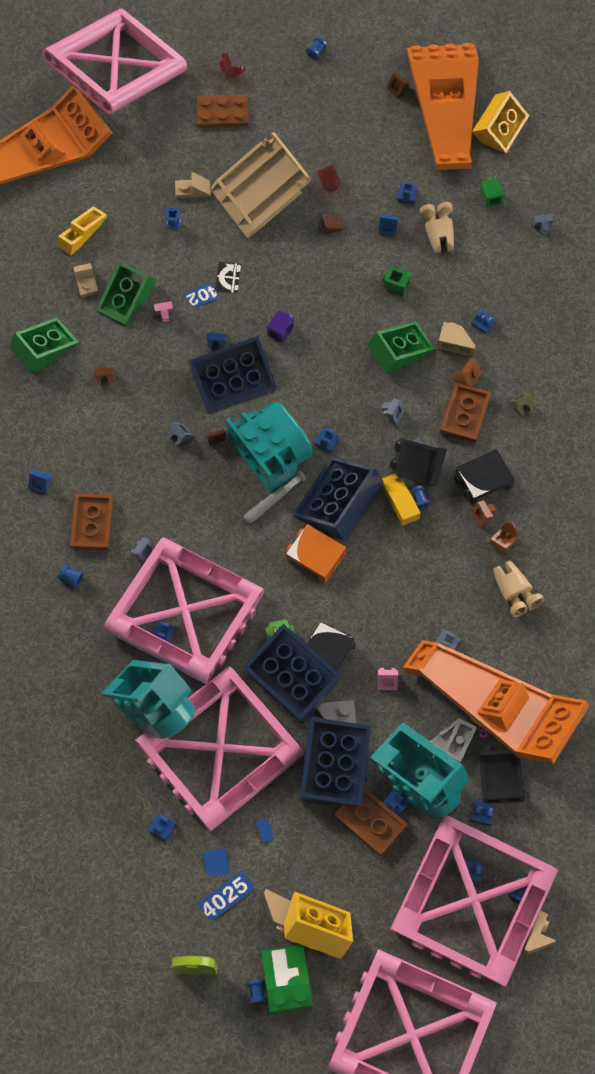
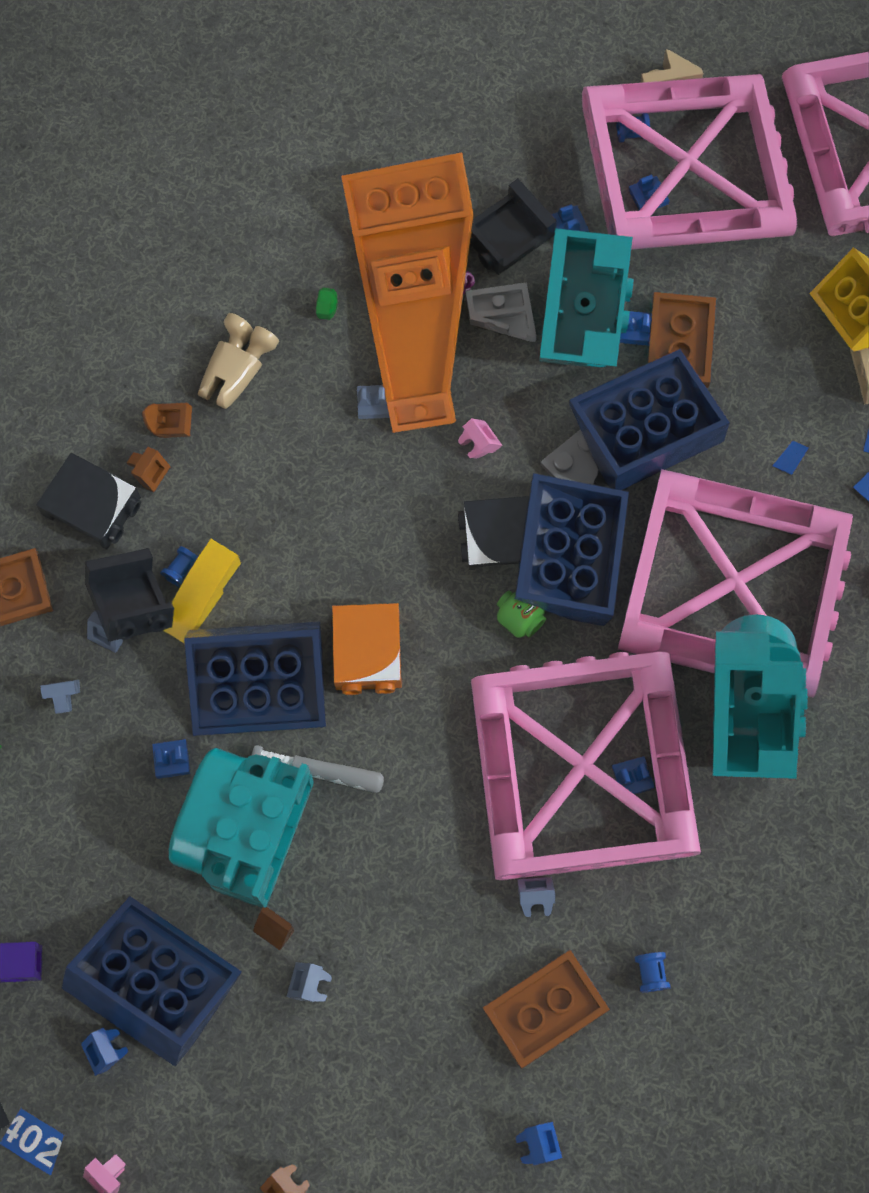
camera: 125 degrees left, 5 degrees up
(519, 654) = (326, 303): none -> green tile

